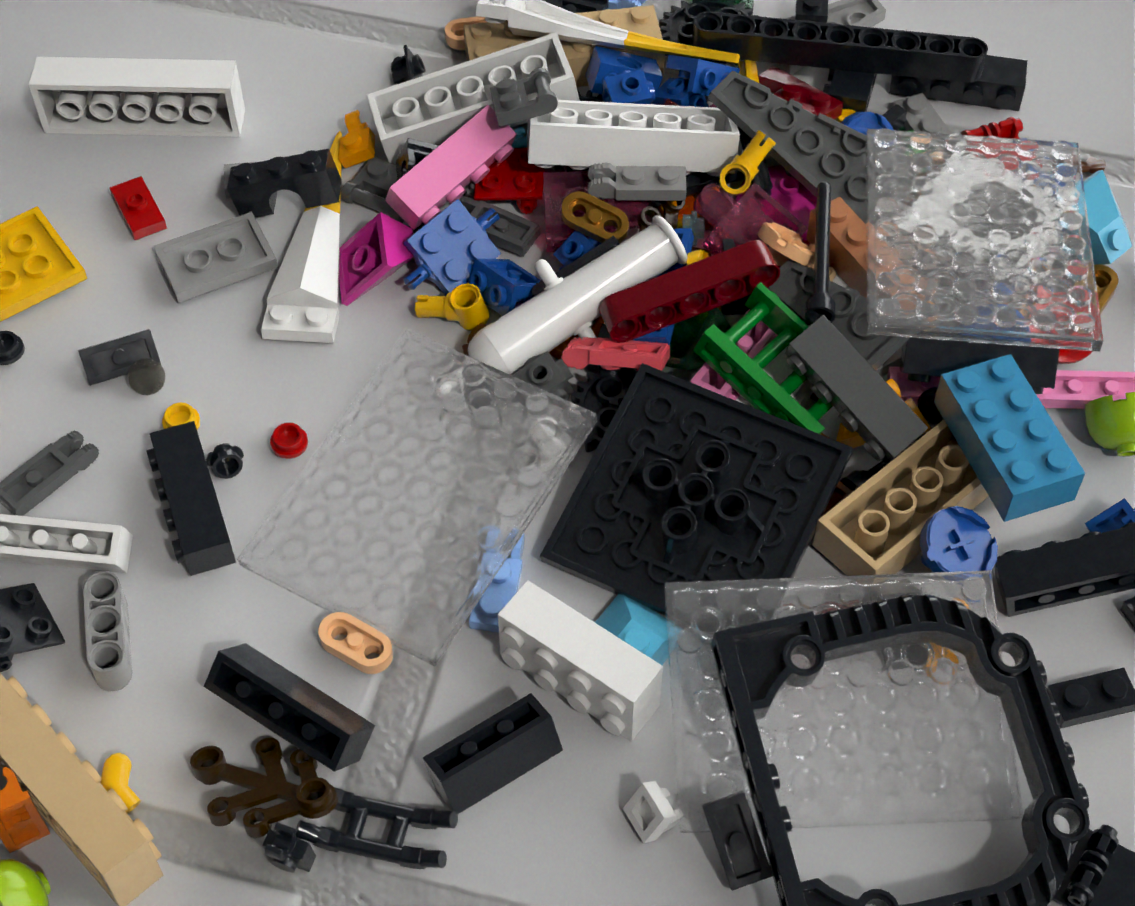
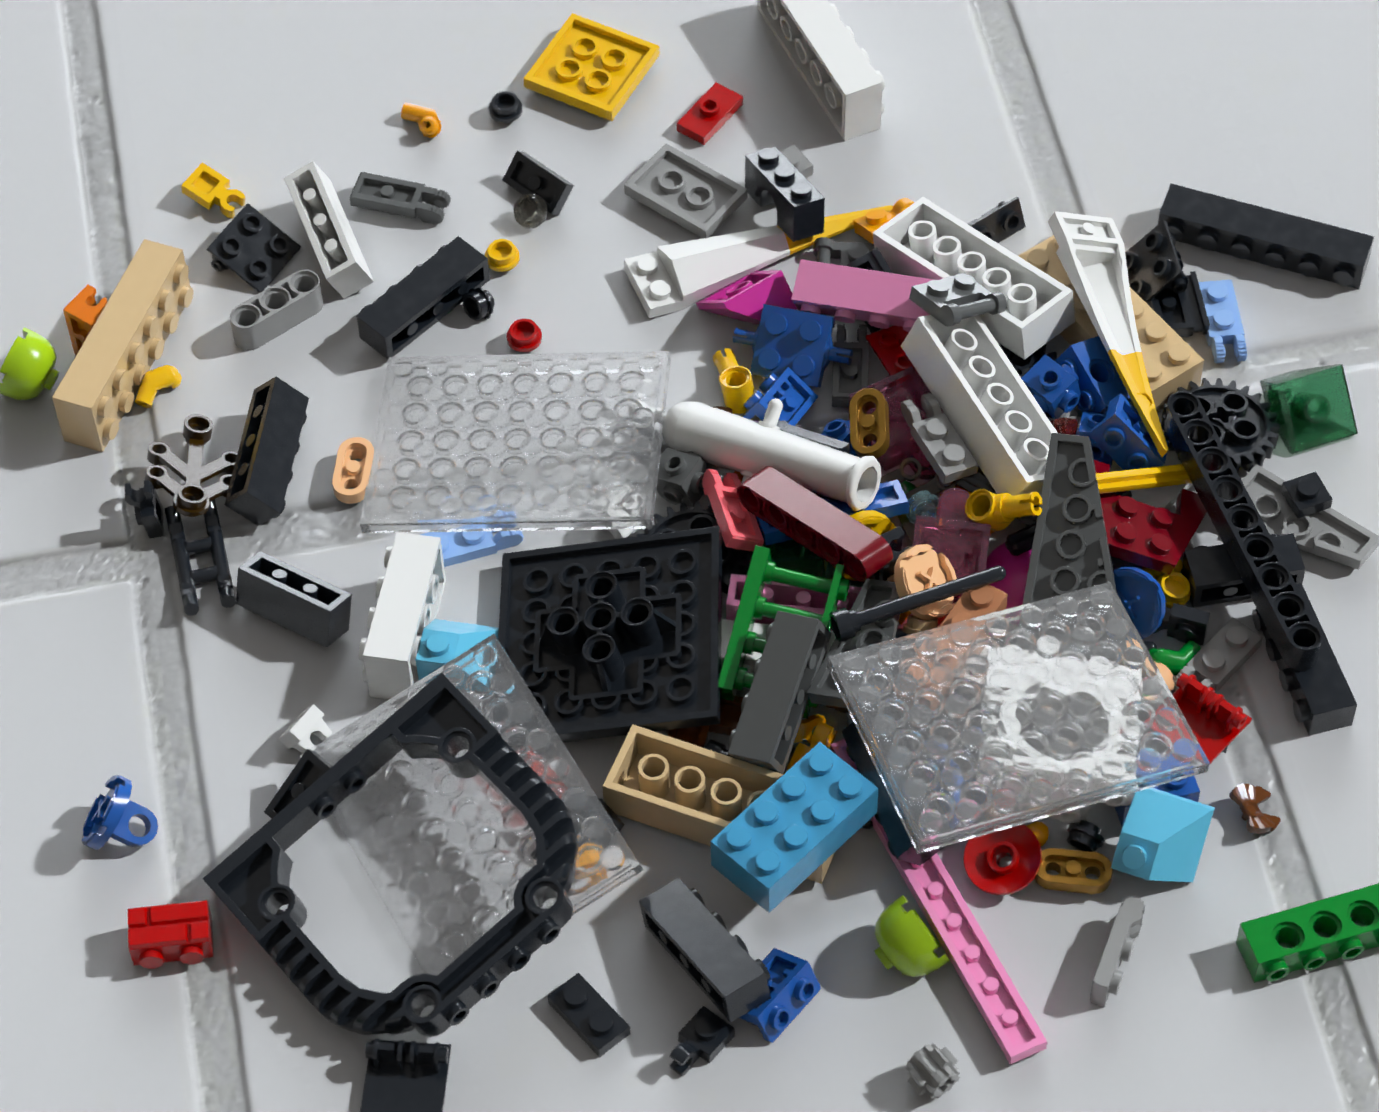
camera: 65 degrees right, 0 degrees up
(957, 542) = (667, 840): tile -> none

